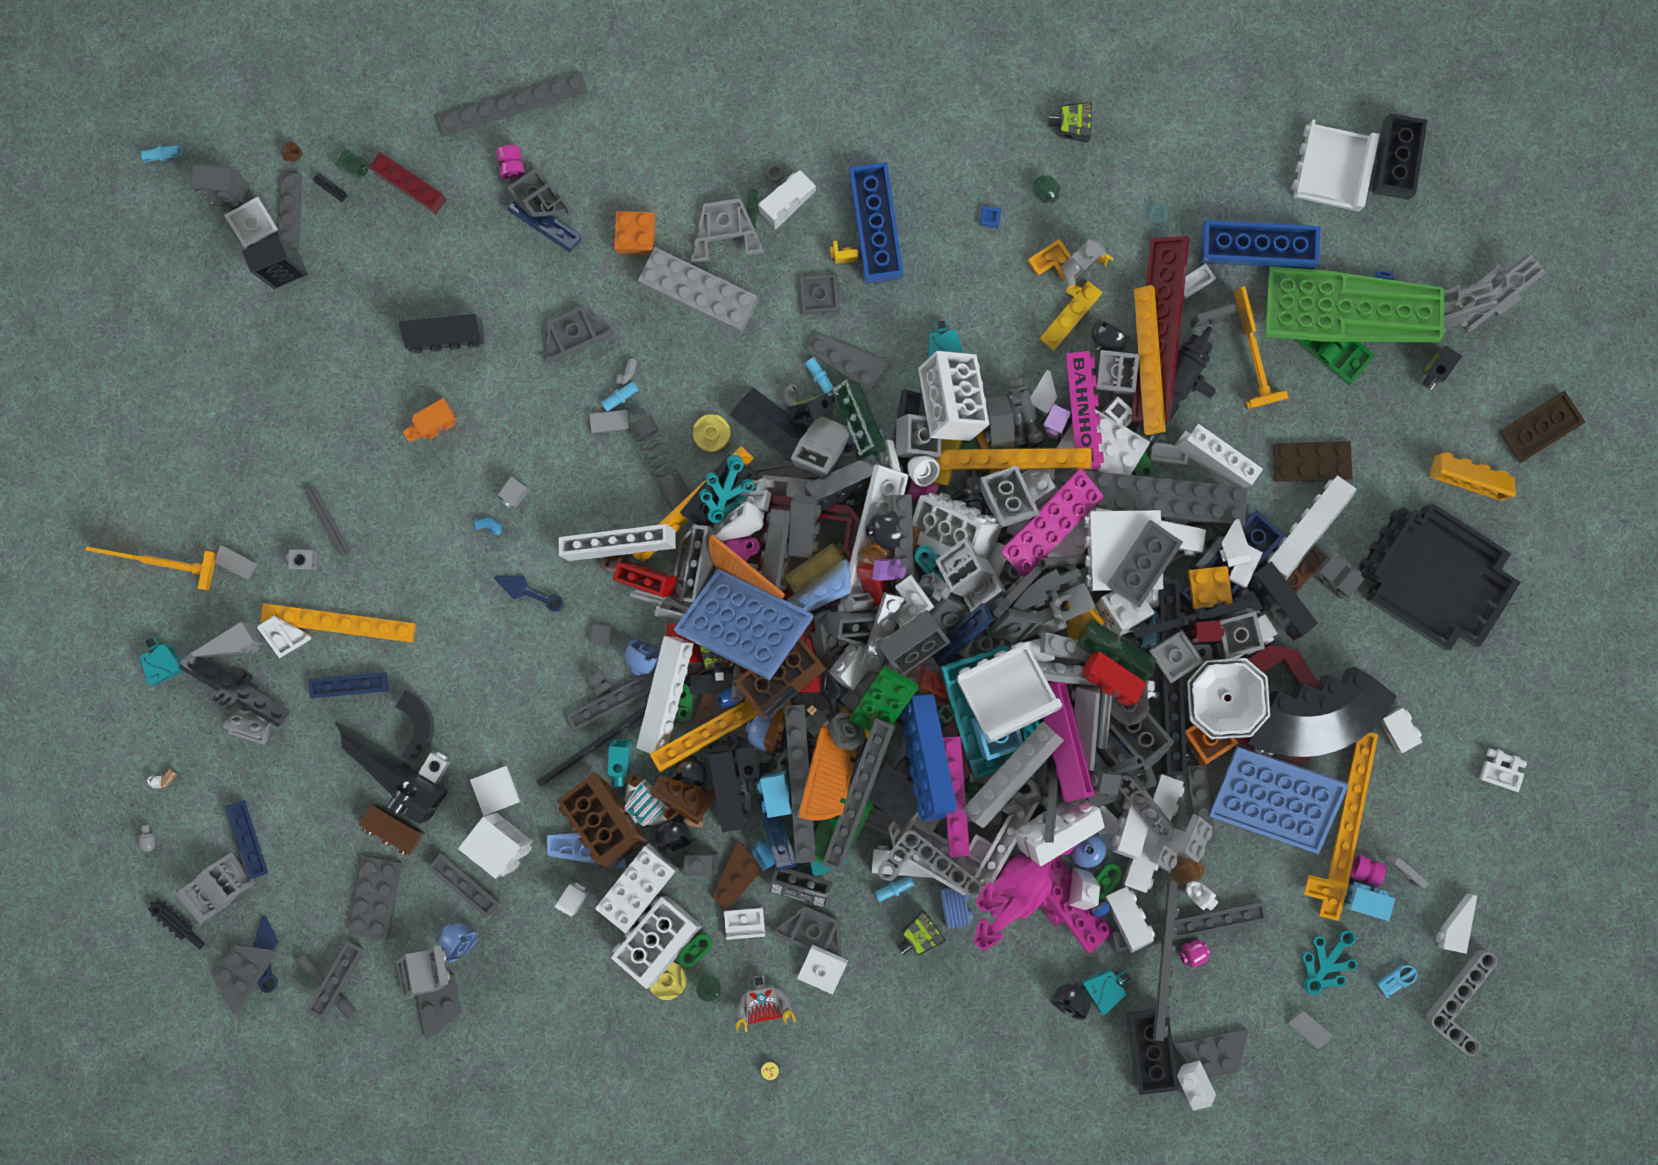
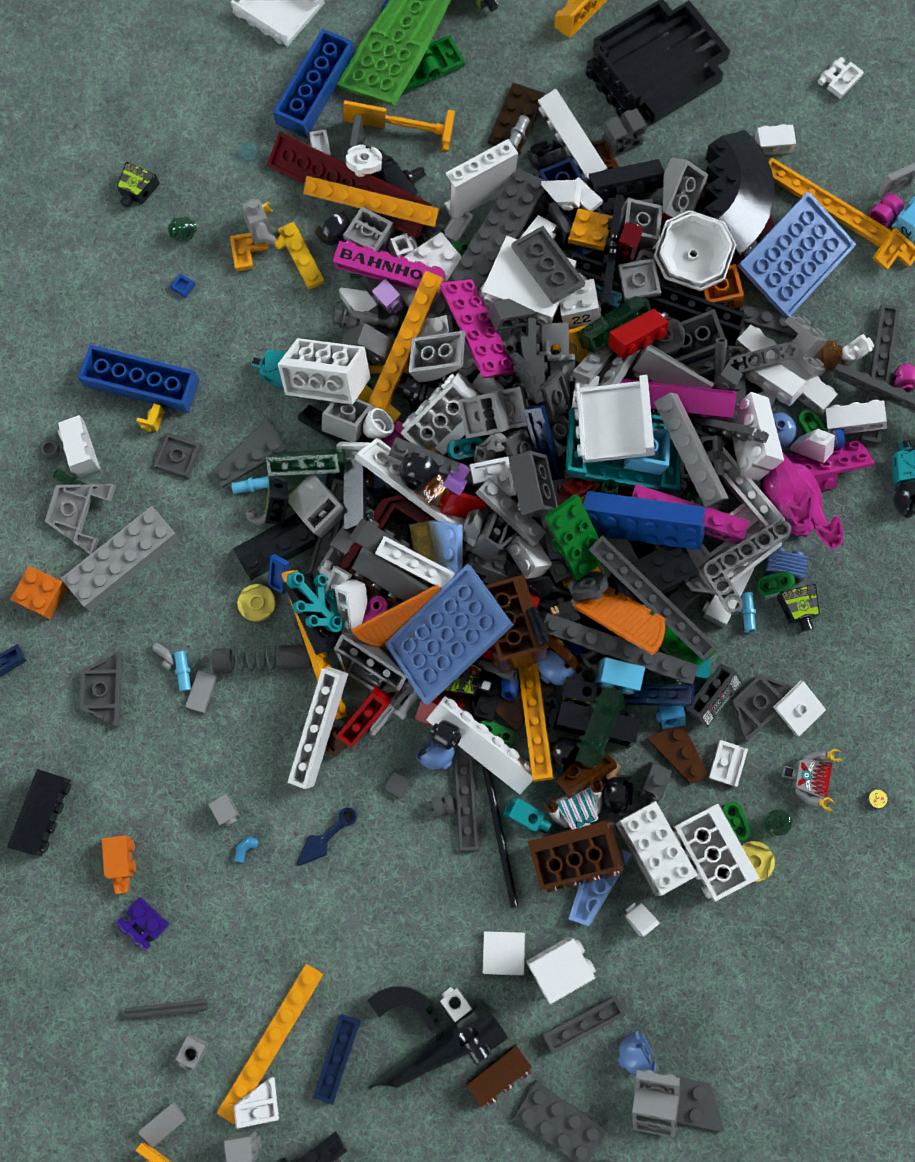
camera: 65 degrees left, 10 degrees down
(395, 467) = (147, 919): none -> dark purple plate
(656, 660) = (446, 734): none -> black head
(721, 795) = (600, 726): none -> clear green hose
(745, 439) = (276, 567): none -> blue tile
(796, 564) = (414, 562): none -> white plate
(932, 904) = (777, 583): none -> green plate
(1077, 547) = (508, 314): none -> dark grey slope
(1178, 337) = (371, 160): none -> white plate
(1280, 508) = (544, 154): none -> black cylinder
(1291, 471) = (518, 131): none -> light grey pin
(1292, 659) = (682, 186): none -> light grey slope

